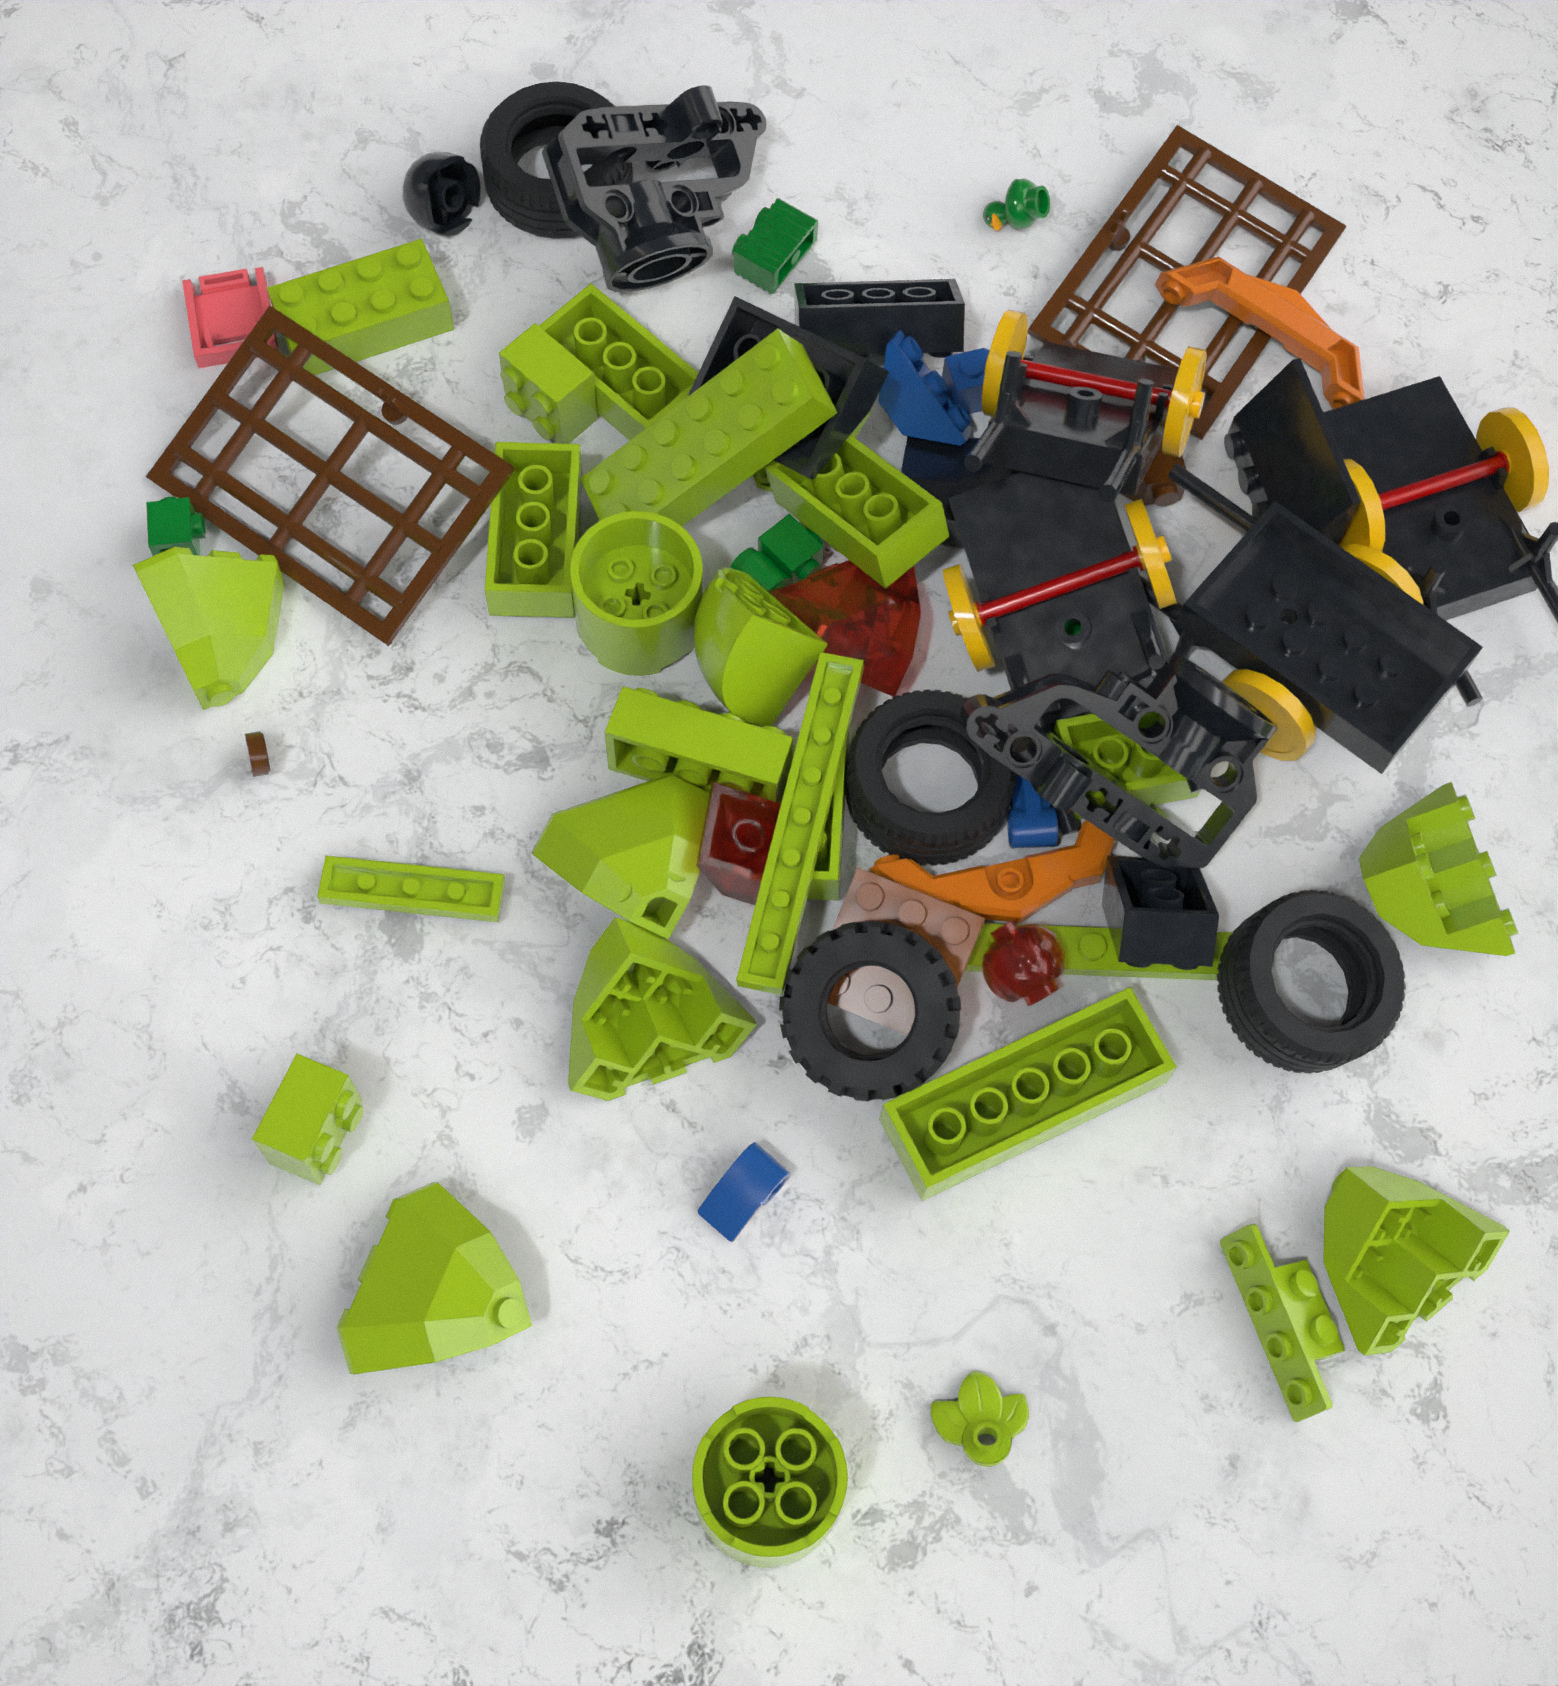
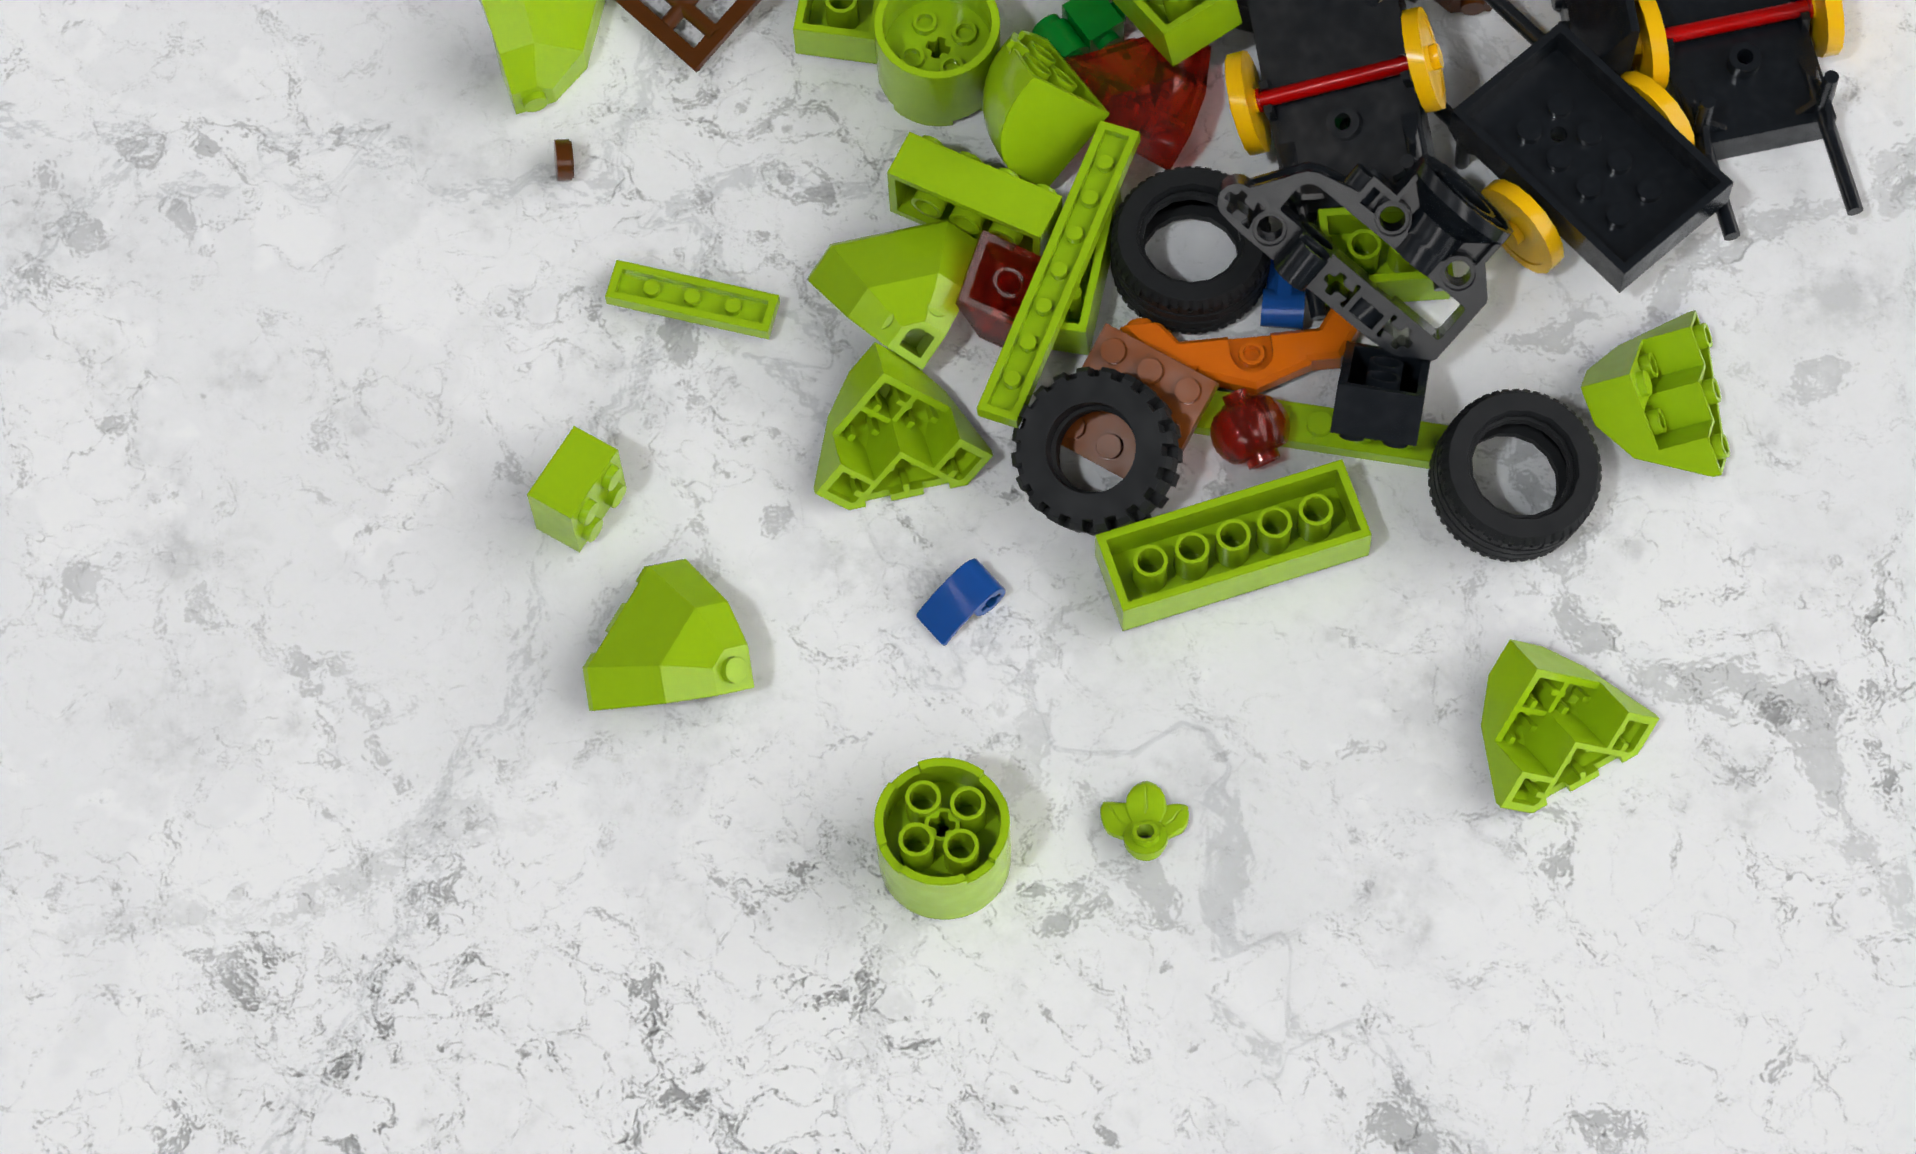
camera: 15 degrees right, 0 degrees up
(1287, 1319) = (1440, 769): lime bracket -> none

